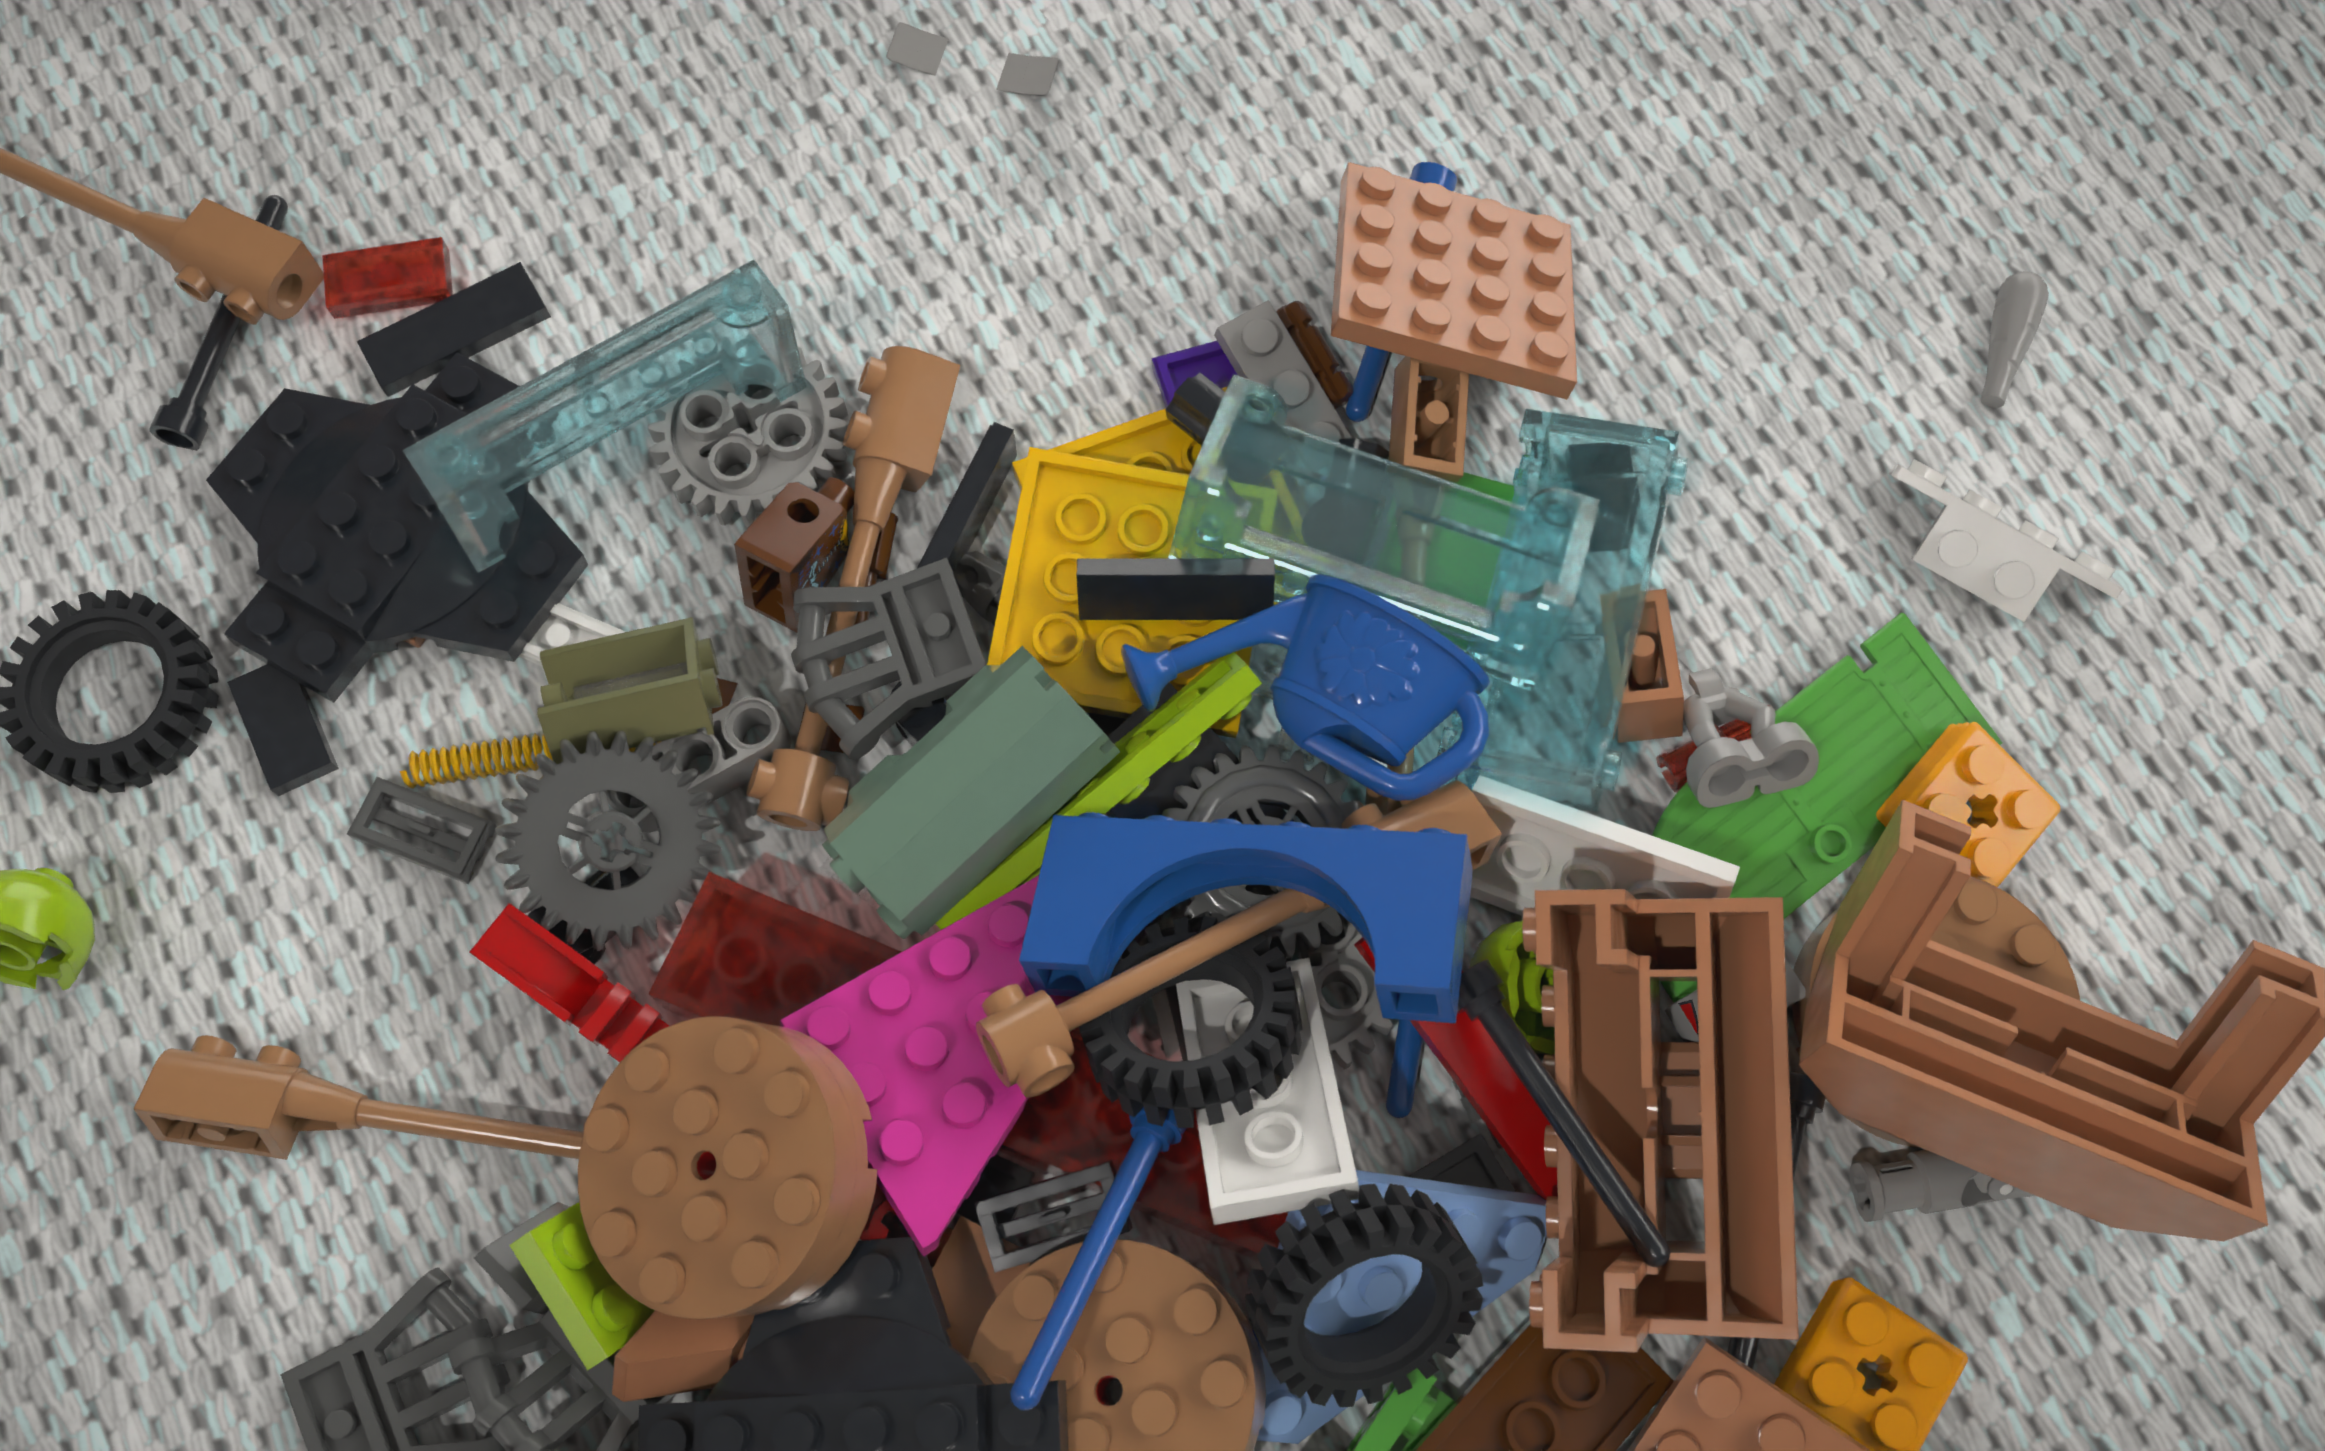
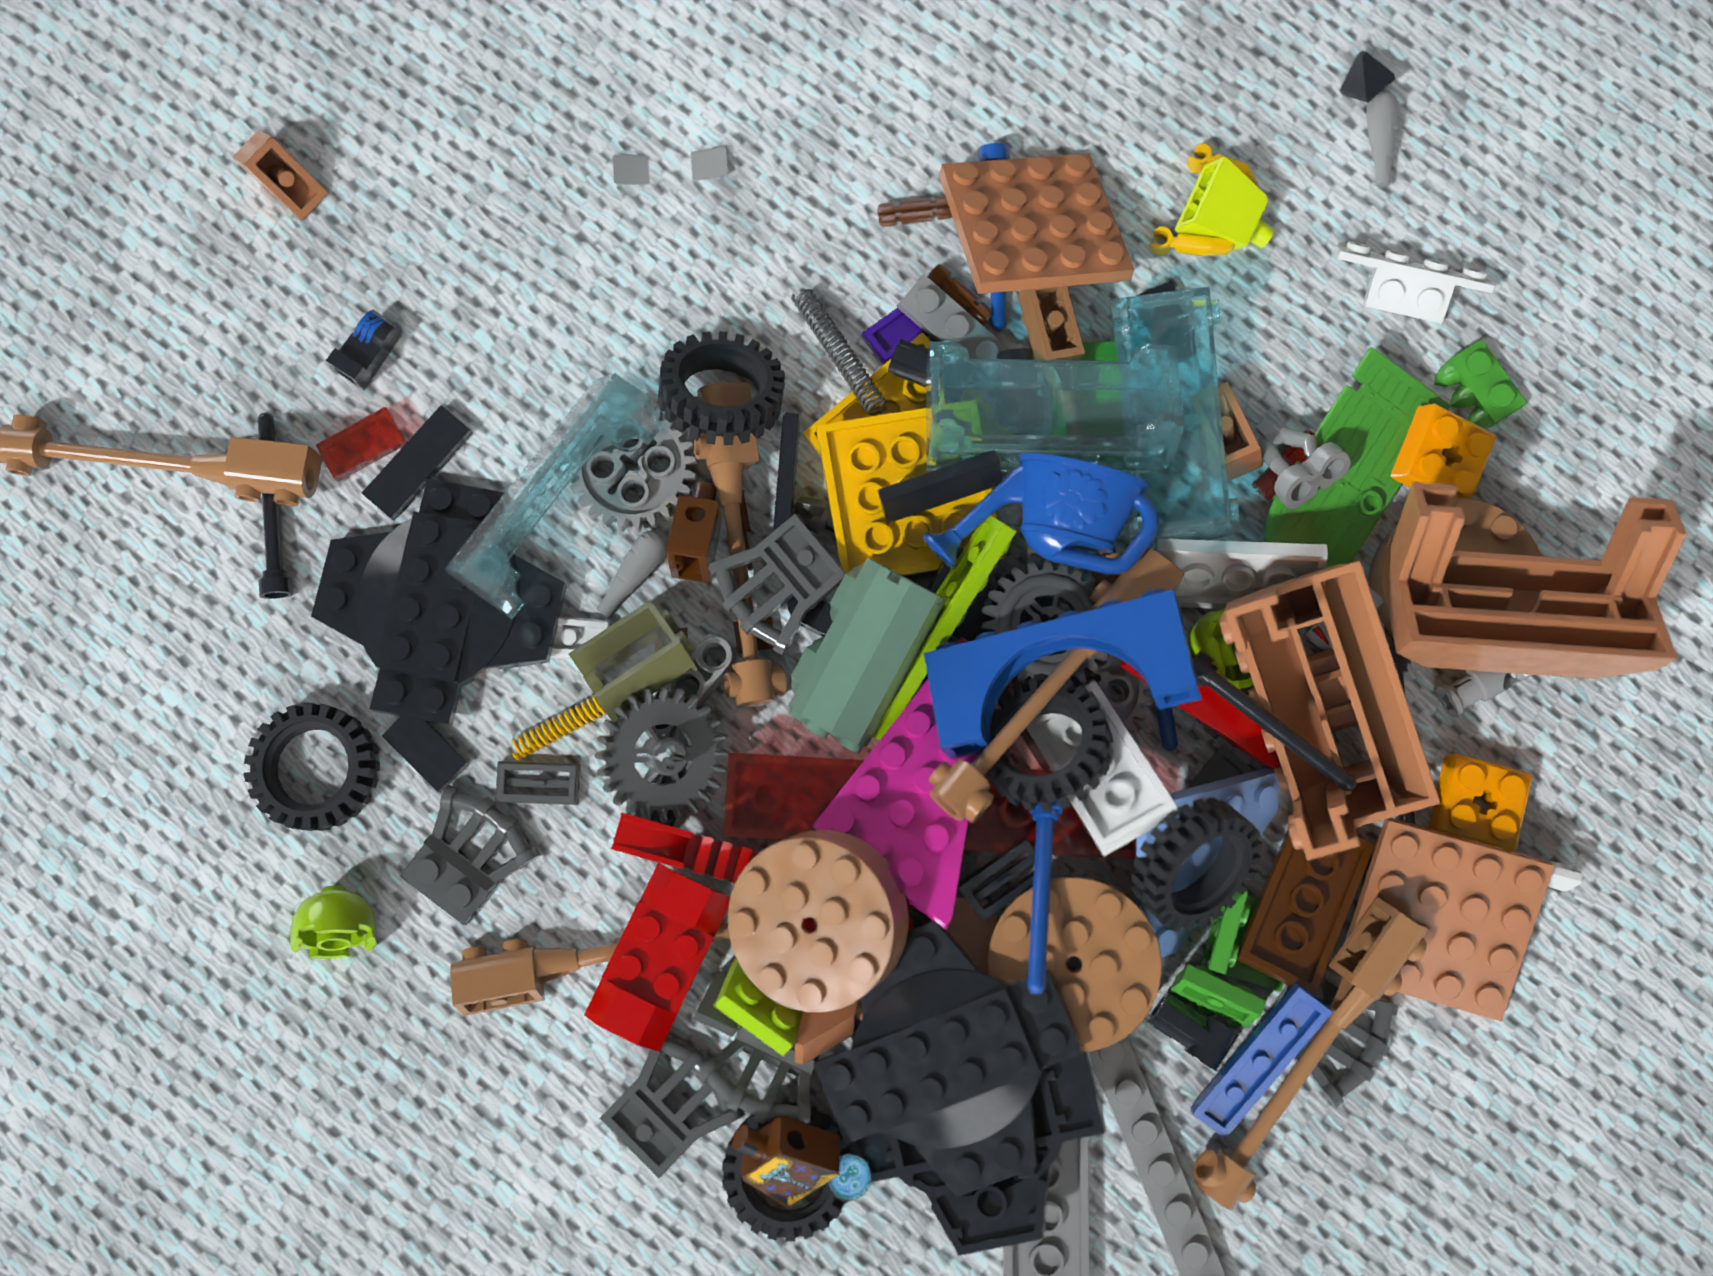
camera: 15 degrees left, 10 degrees up
(231, 920) = (452, 878): none -> dark grey plate
(450, 157) = (365, 349): none -> black leg
(469, 1155) = (657, 958): none -> red piece
(691, 574) = (637, 565): none -> light grey piece
(904, 397) = (716, 419): none -> black tyre
(1084, 314) = (835, 358): none -> dark grey piece
(1286, 222) = (913, 211): none -> reddish brown axle
(1733, 357) = (1220, 210): none -> neon yellow torso
(2010, 248) = (1366, 78): none -> black slope
(2059, 730) = (1481, 384): none -> bright green plate

